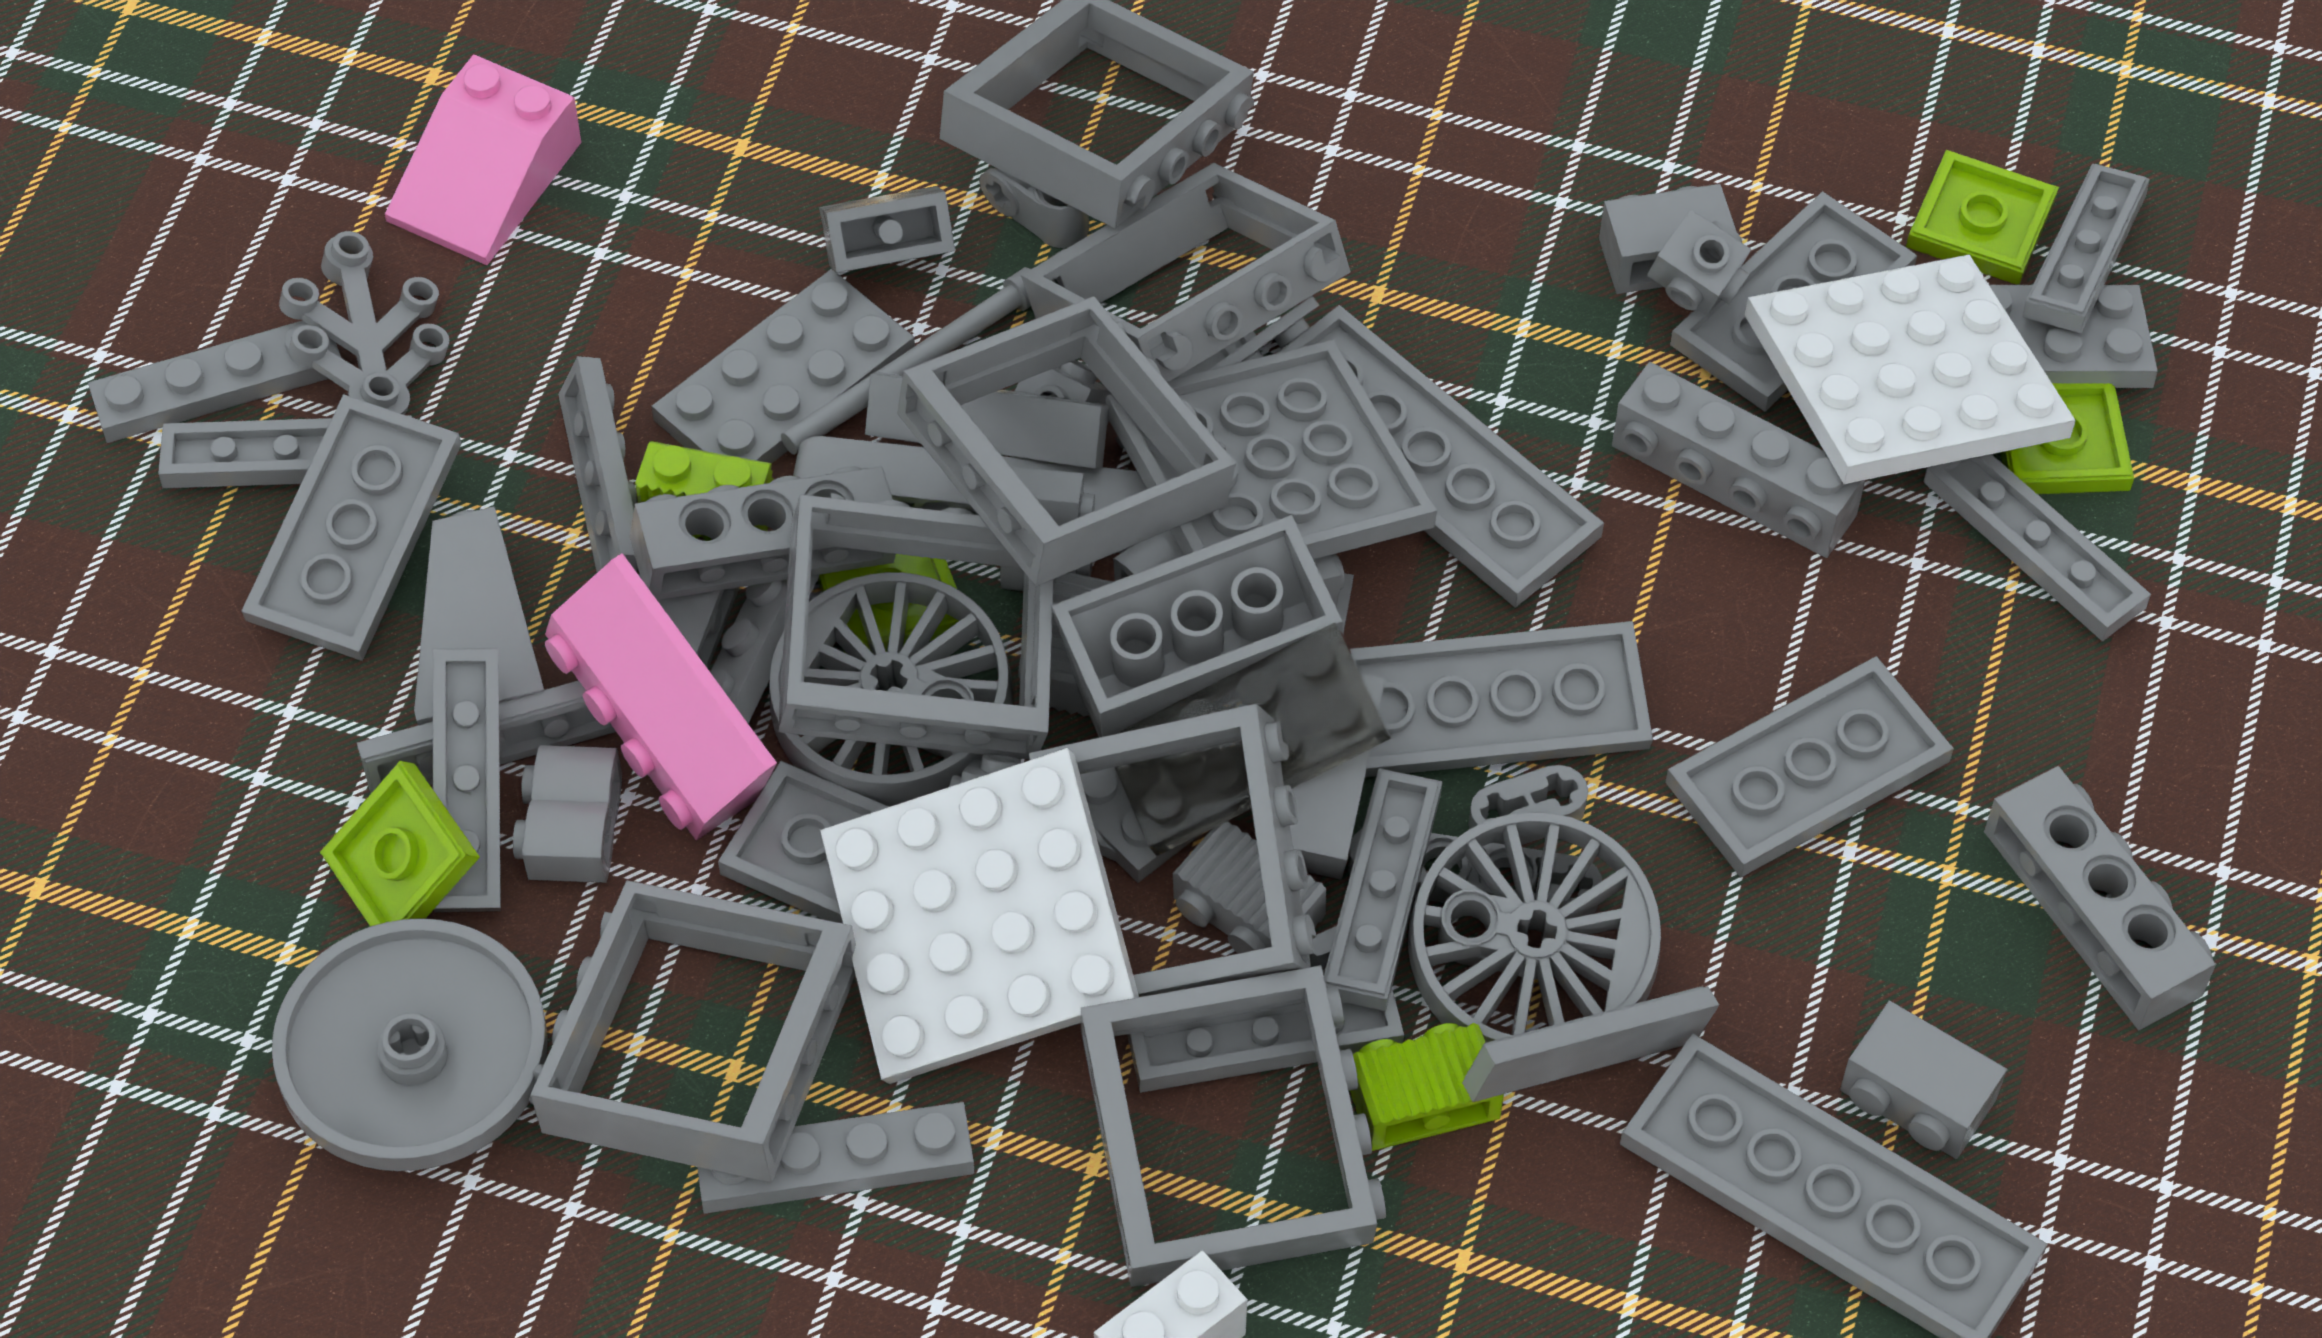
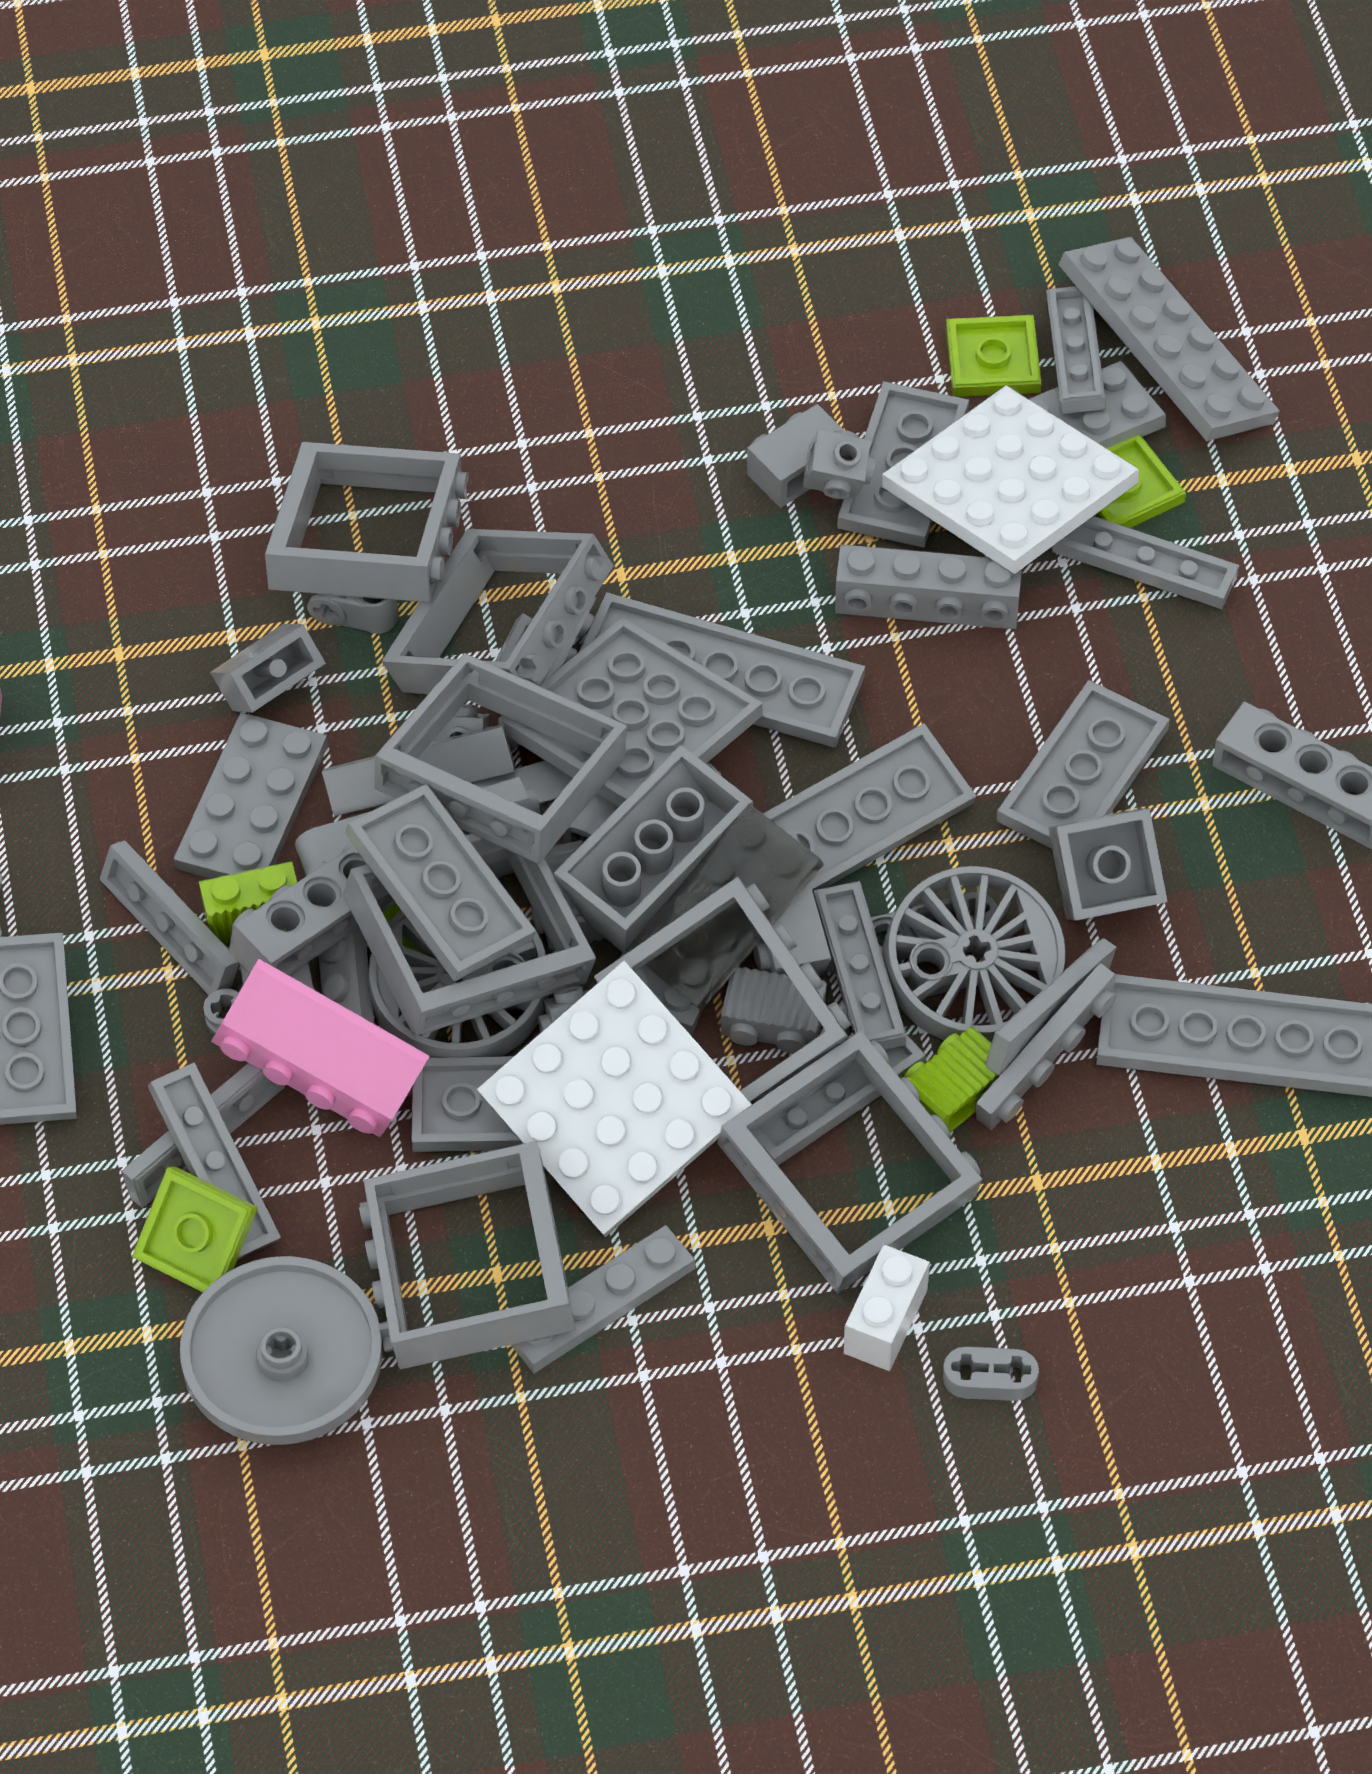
camera: 25 degrees left, 0 degrees up
(473, 605) = (139, 1048): light grey slope -> none
(569, 814) = (290, 1154): light grey brick -> none
(896, 556) = (440, 882): none -> light grey plate
(944, 341) = (376, 679): light grey bar -> none
(1529, 794) = (912, 868): light grey beam -> none
(1537, 1102) = (1035, 1060): none -> light grey plate
(1763, 895) = (1107, 864): none -> light grey brick
(1922, 1080) = (1264, 939): light grey brick -> none
(2215, 283) = (1169, 338): none -> light grey plate

